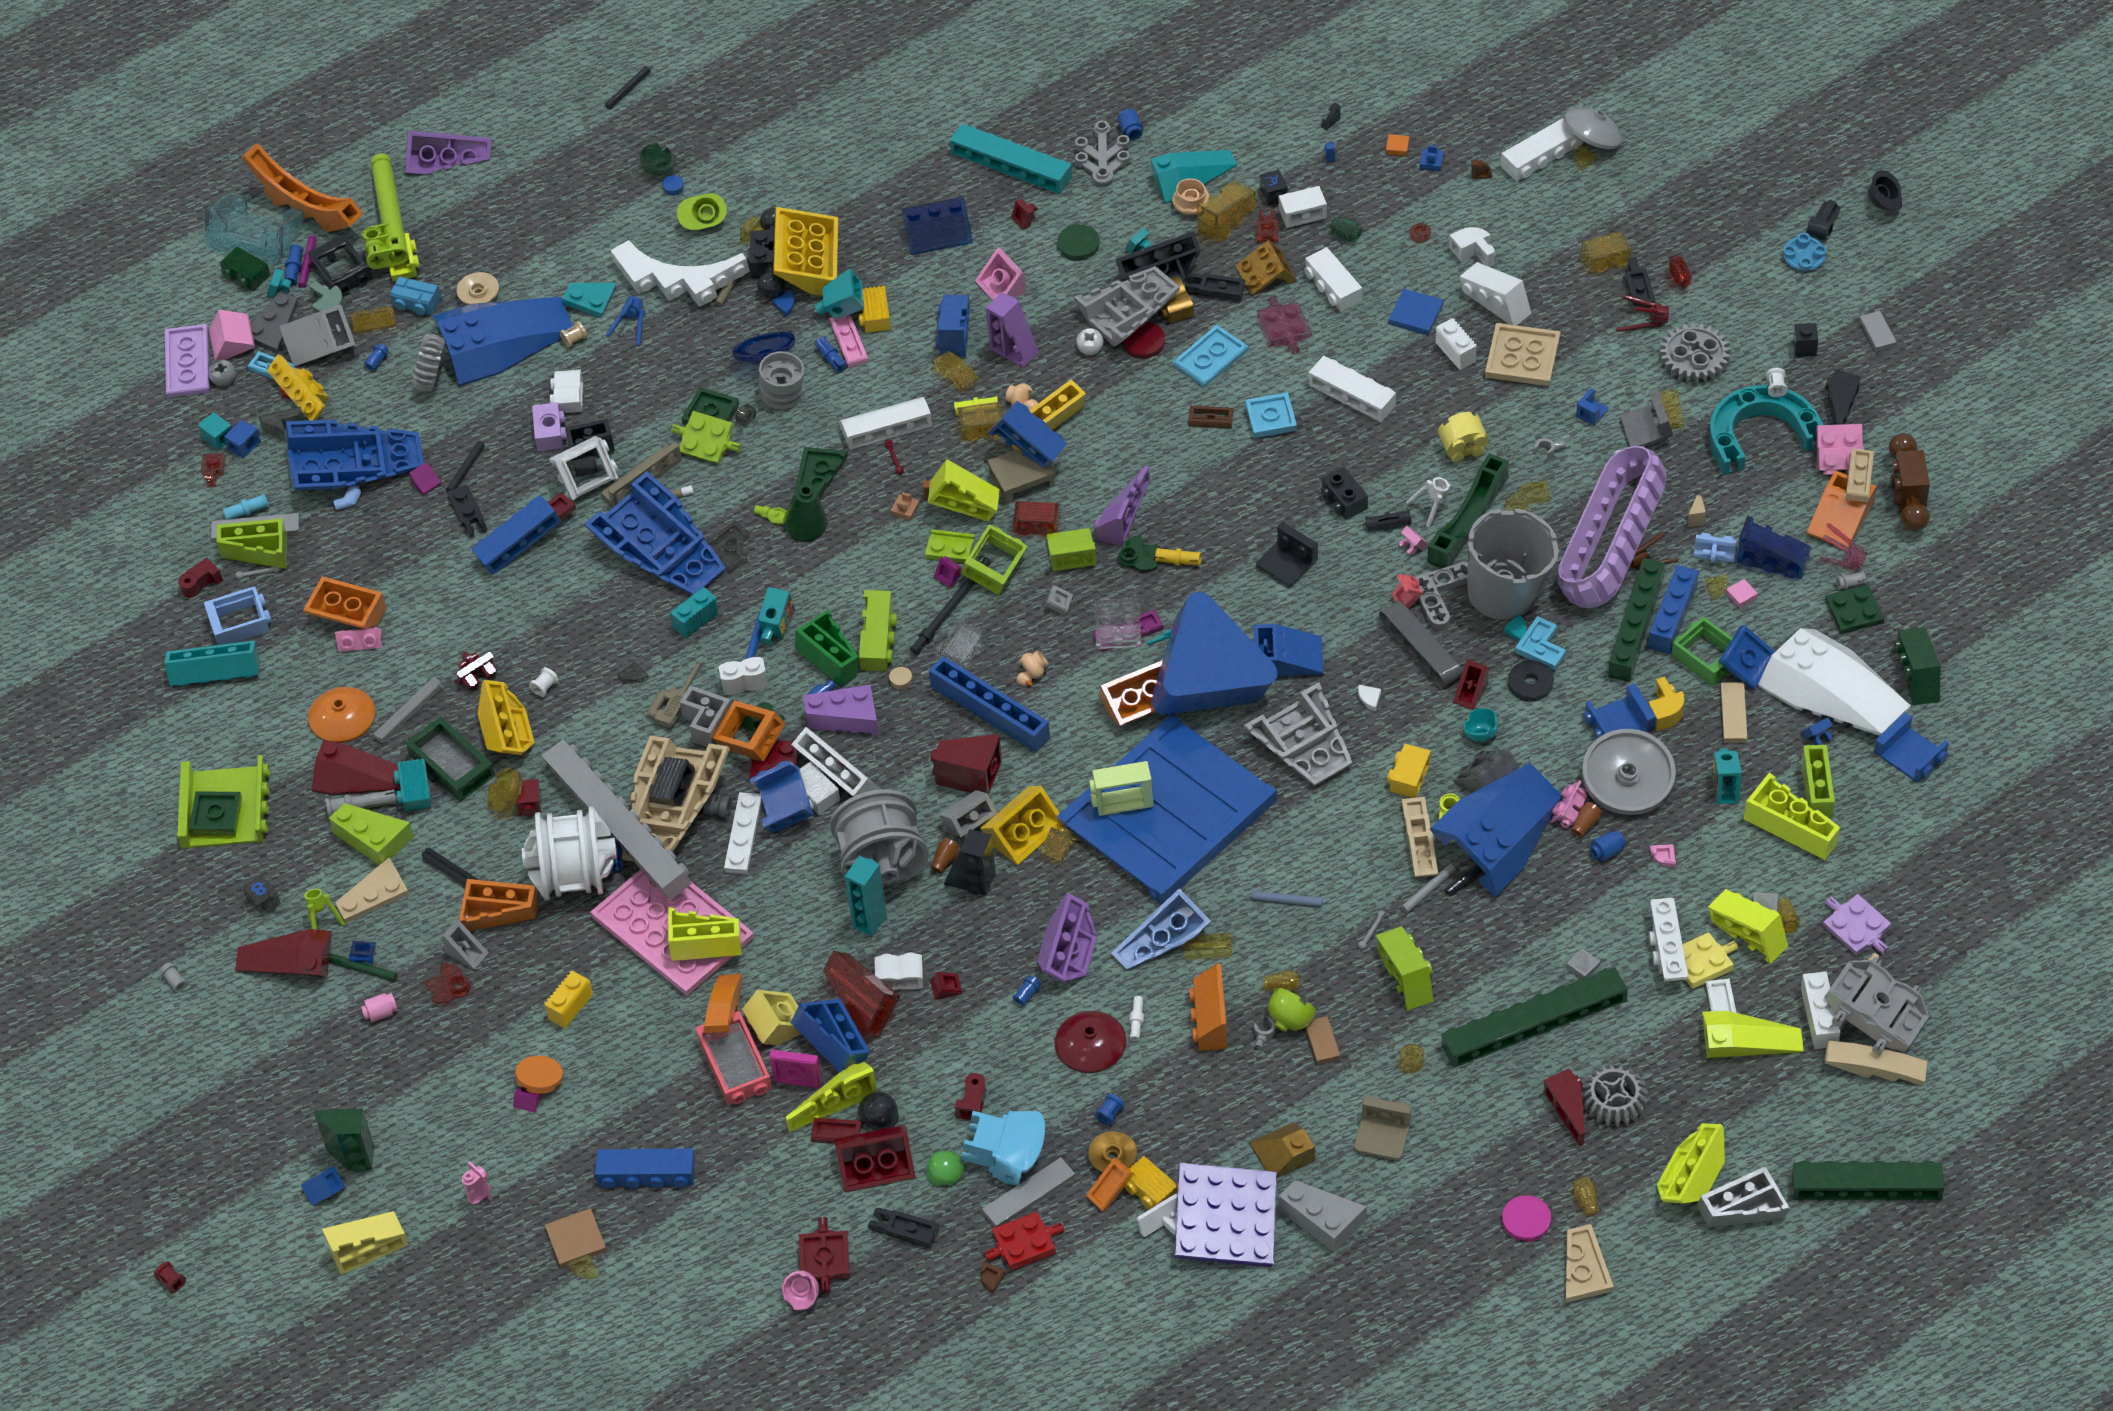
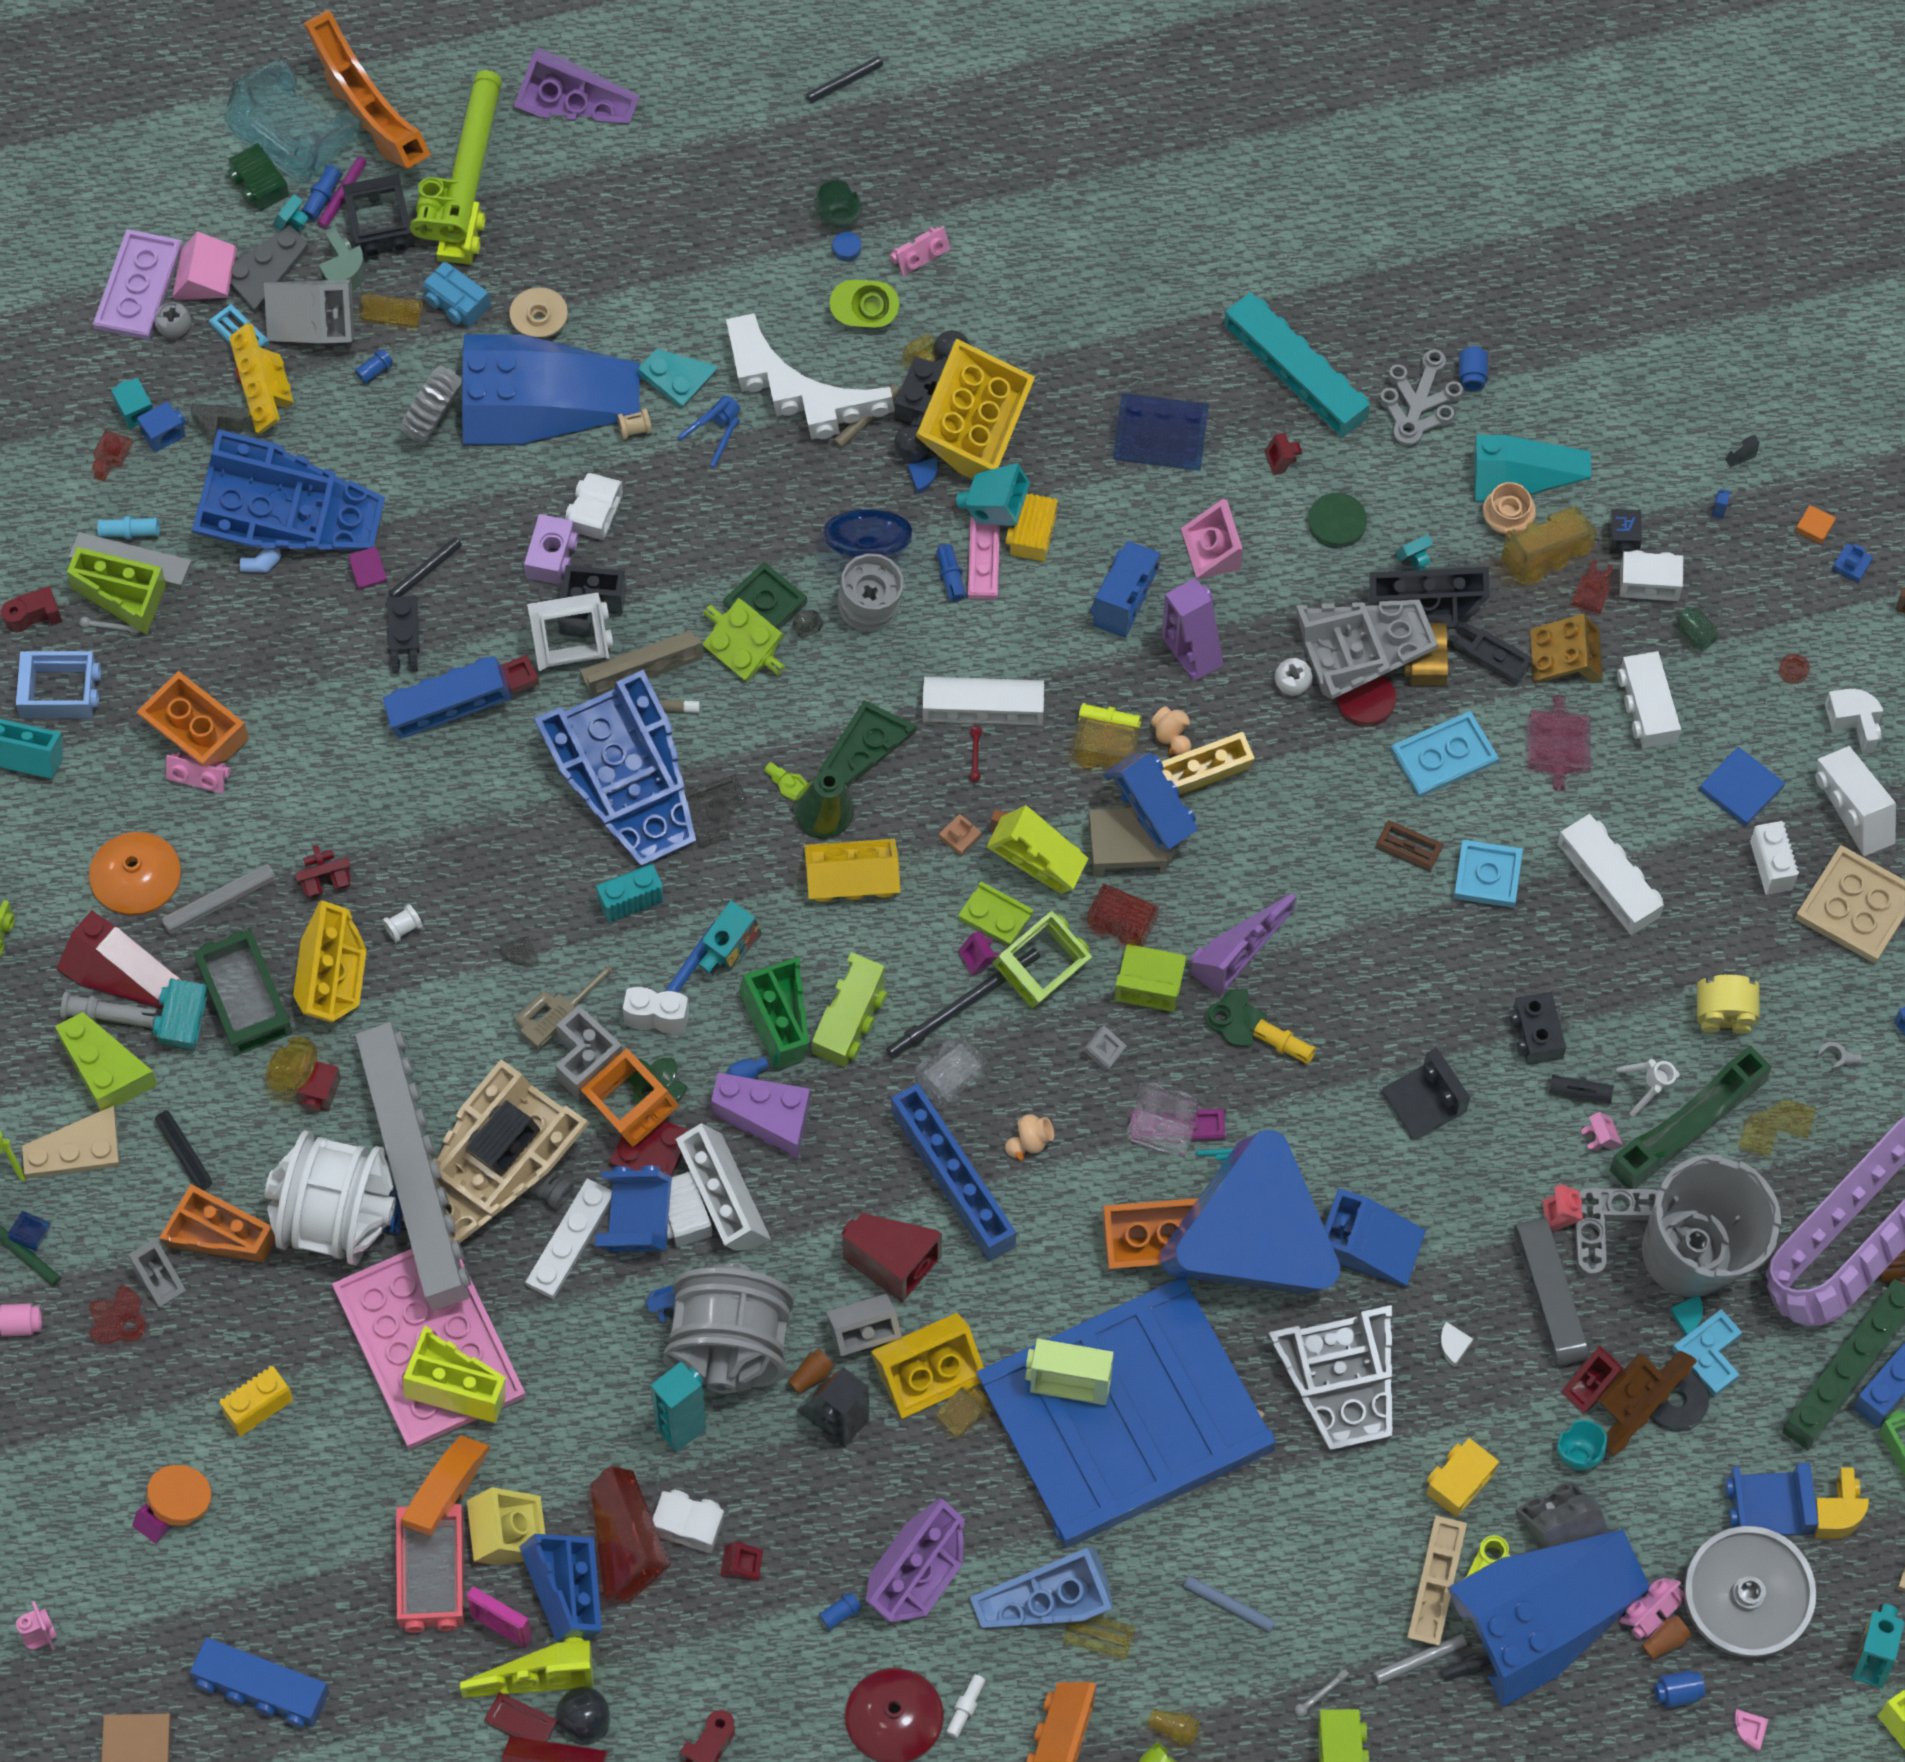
camera: 15 degrees right, 10 degrees up
(726, 171) = (923, 250): none -> bright pink hinge
(825, 844) = (660, 1300): none -> blue tile
(841, 550) = (852, 869): none -> yellow slope
(900, 678) = (857, 1086): tan tile -> none
(952, 366) = (1103, 654): clear yellow slope -> none
(1504, 681) = (1638, 1393): none -> reddish brown bracket

